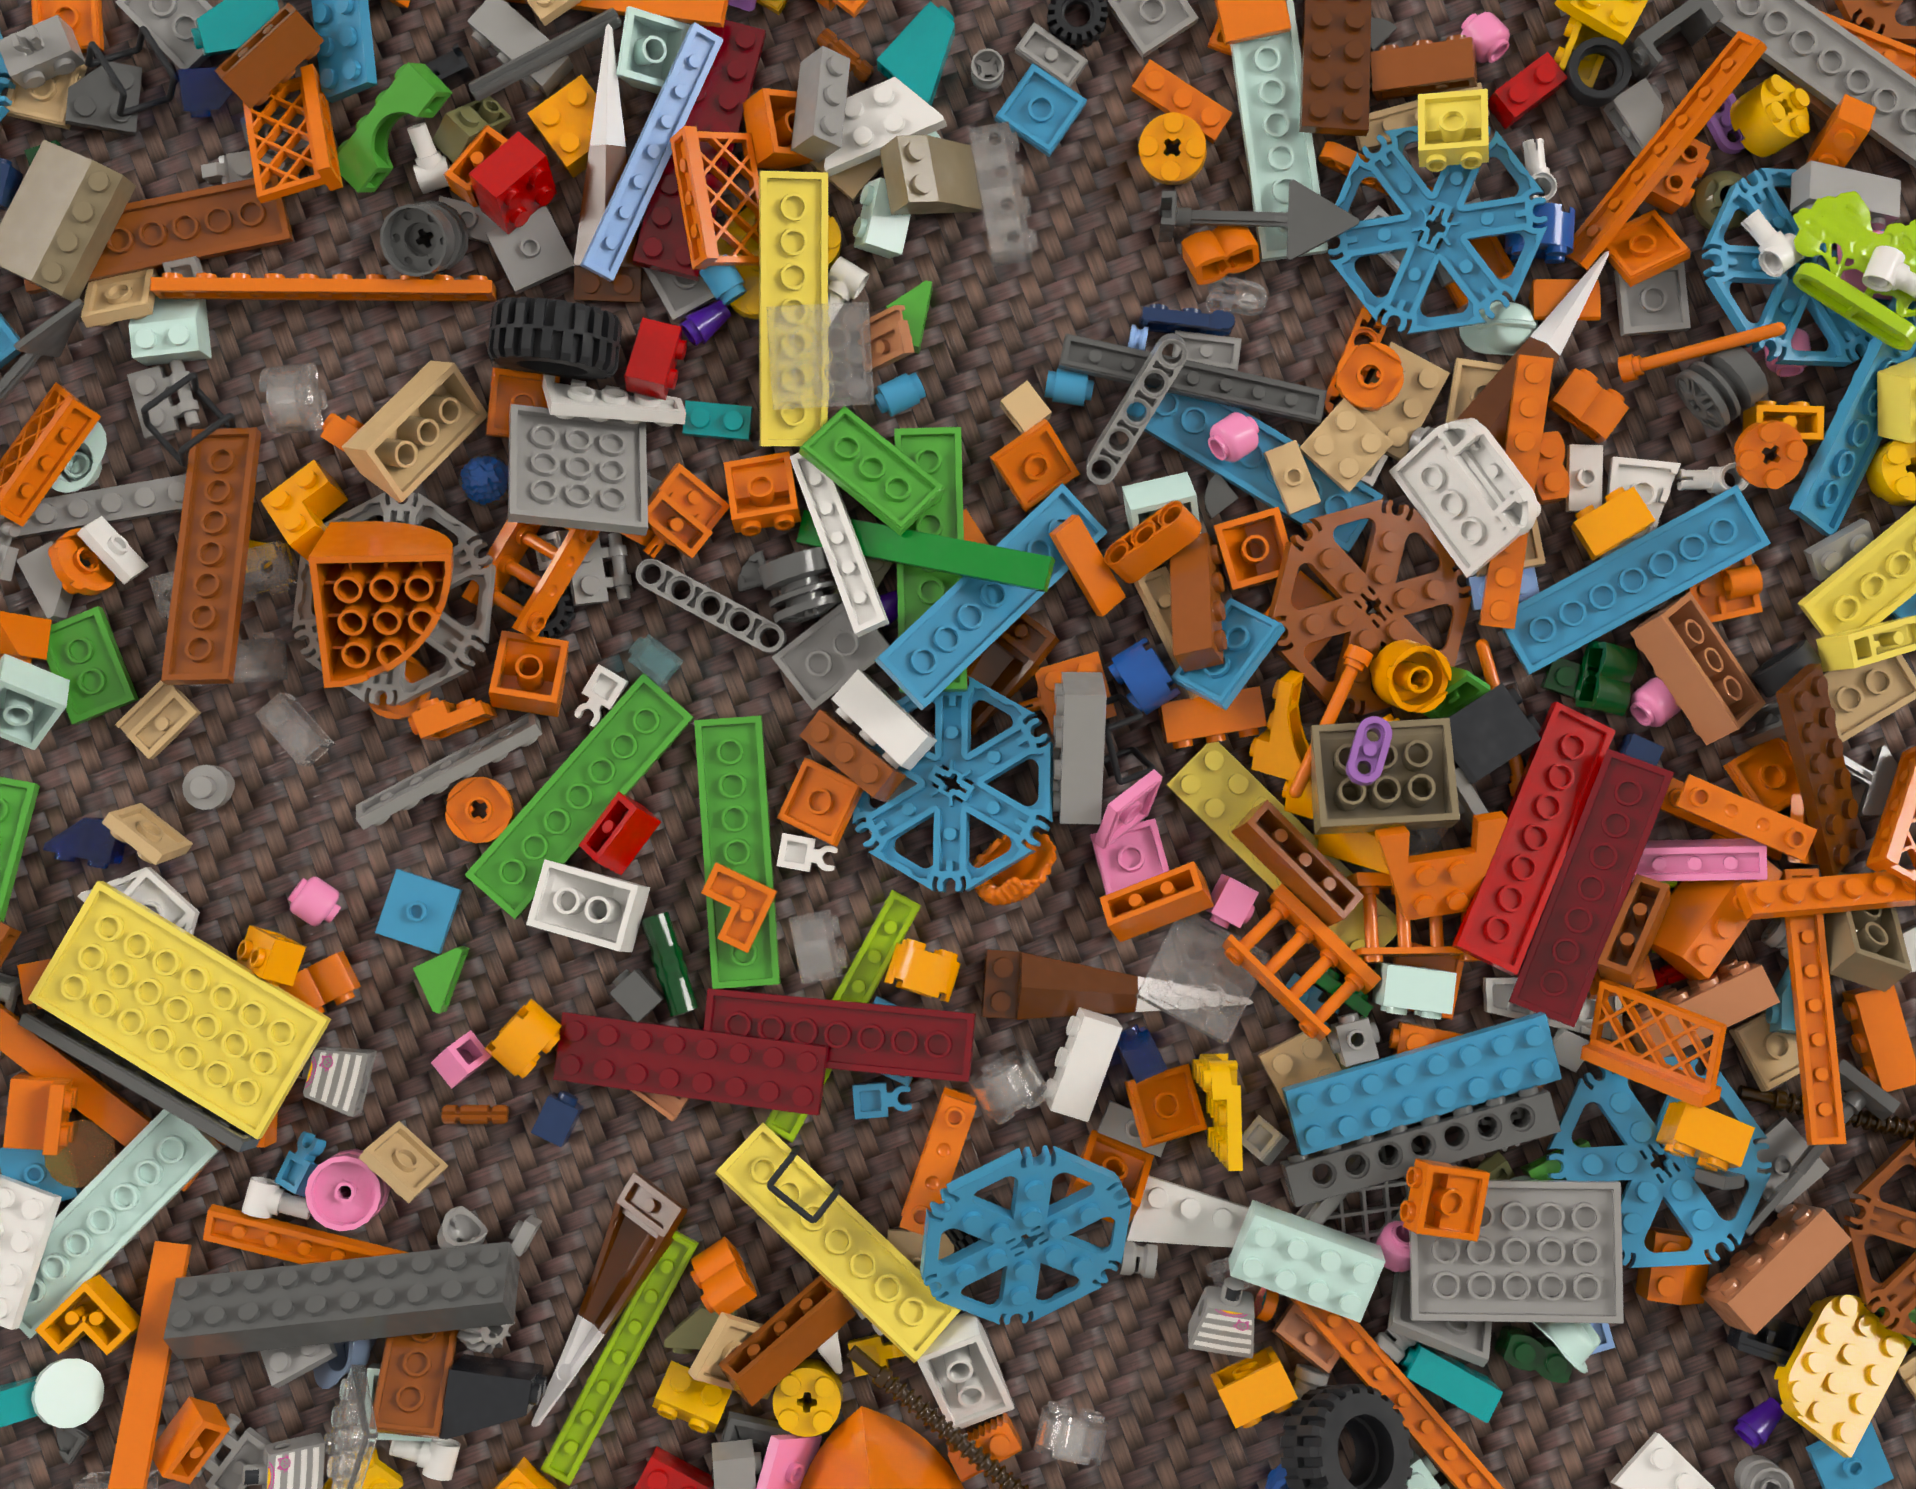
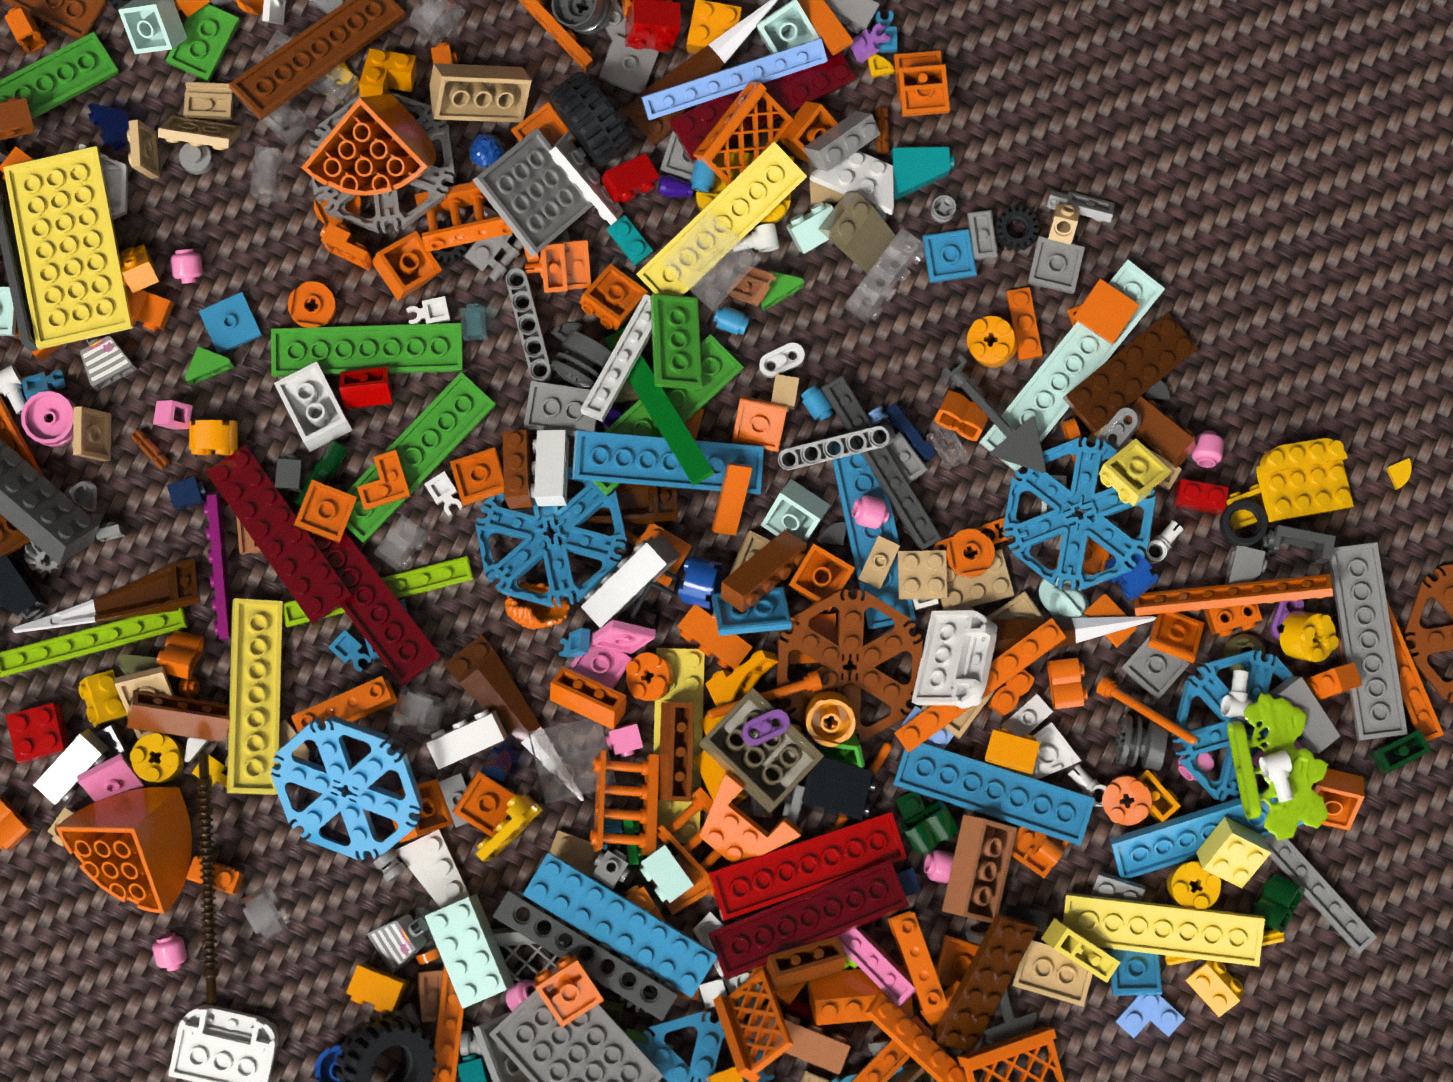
camera: 45 degrees right, 5 degrees down
(183, 759) = (199, 132): none -> tan plate
(440, 774) = (310, 268): light grey plate -> none
(677, 1164) = (219, 577): none -> magenta plate
(712, 994) = (325, 511): none -> orange plate
(765, 1301) = (189, 687): none -> orange plate
(812, 1219) = (284, 671): black piece -> none
(923, 971) = (438, 609): light orange brick -> none
(965, 1373) = (246, 829): white slope -> none
(989, 382) = (781, 360): none -> white plate
(1090, 862) = (577, 644): none -> dark azure plate
(1152, 542) = (775, 520): orange beam -> none
(1208, 813) = (636, 676): none -> orange plate
(1263, 1140) = (514, 875): white slope -> none
(1386, 103) = (1120, 428): none -> light grey plate

